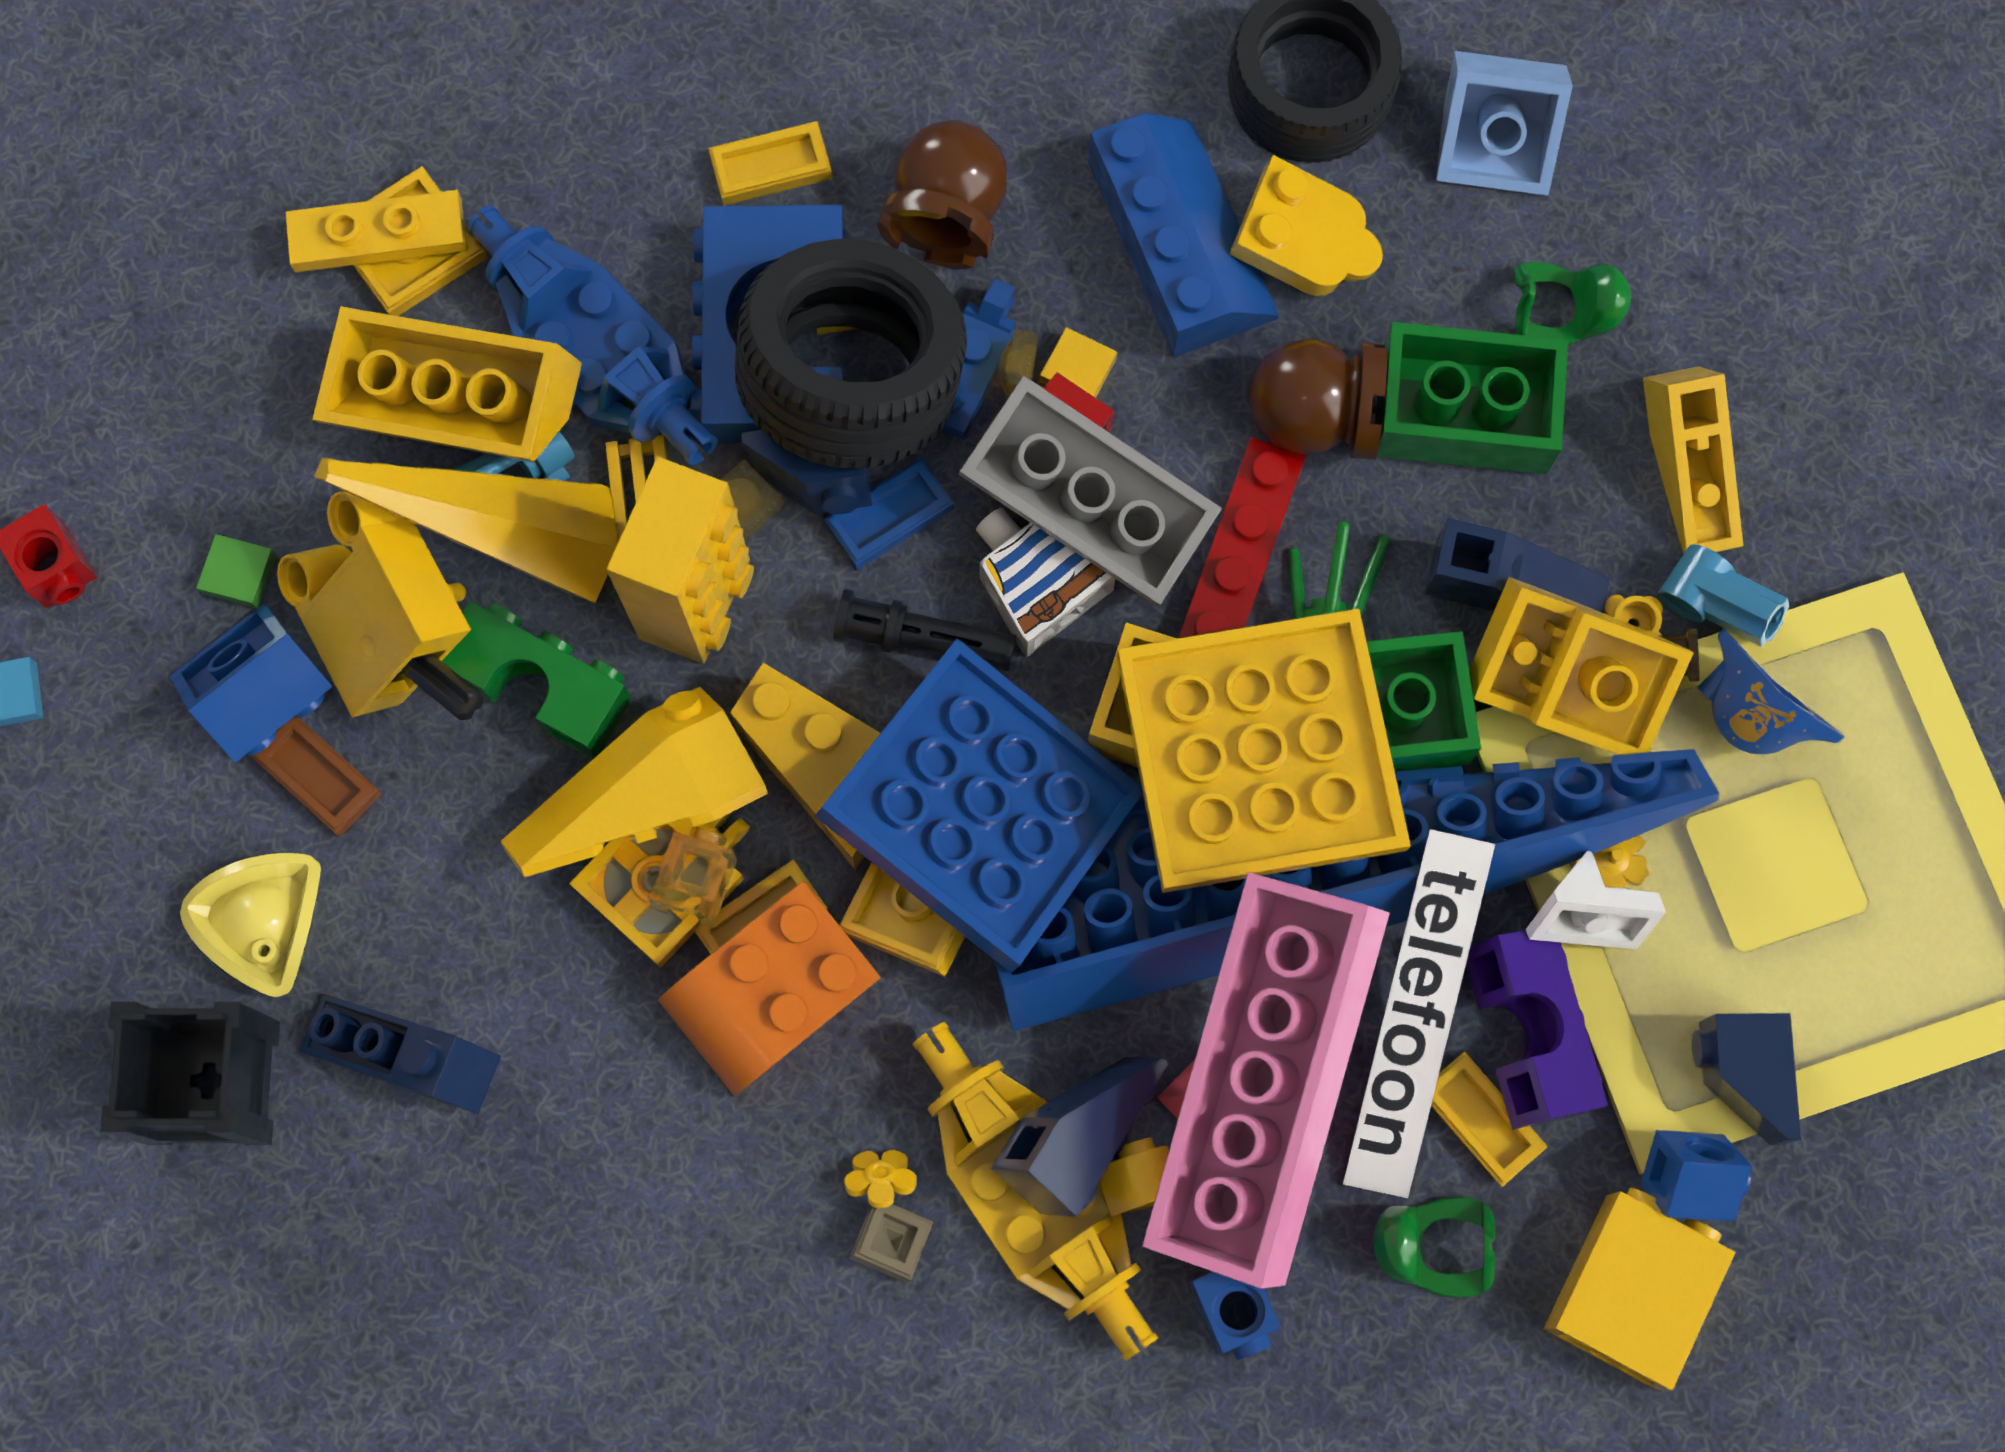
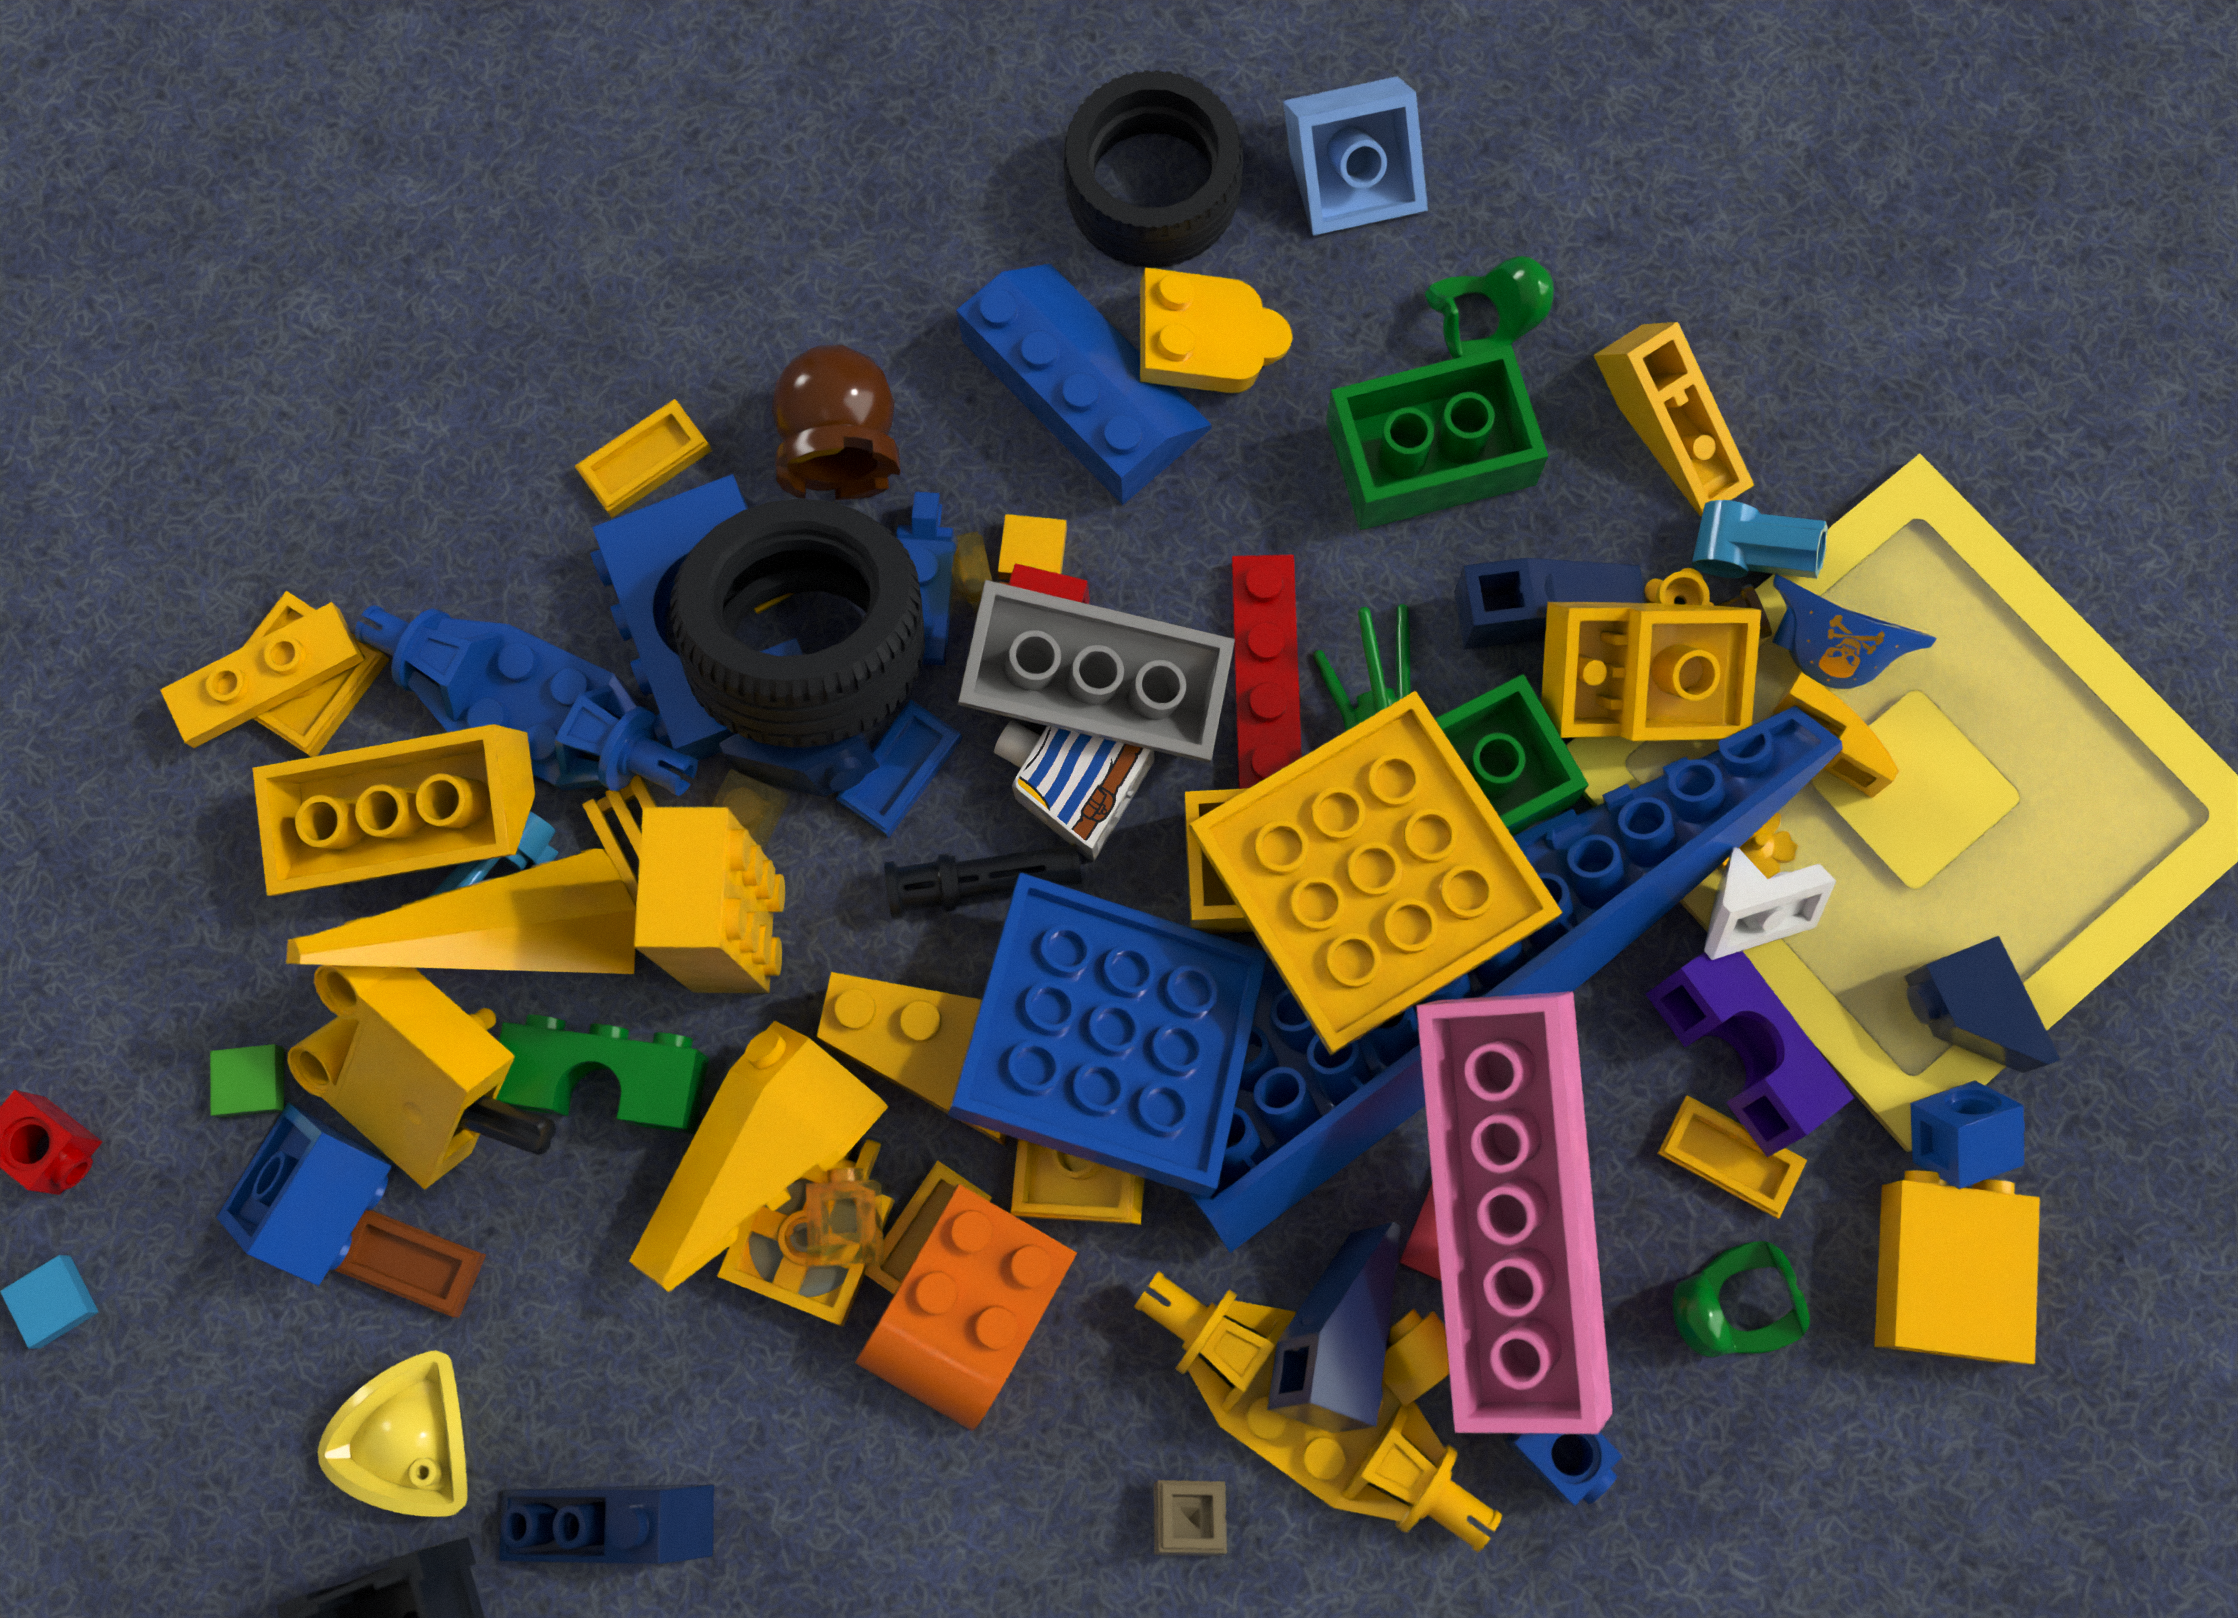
camera: 15 degrees left, 0 degrees up
(880, 1177) = (1153, 1457): yellow plant -> none
(1316, 396) = (1285, 491): reddish brown tile -> none
(1419, 1013) = (1631, 1077): white sticker -> none
(1734, 814) = (1864, 758): none -> yellow slope

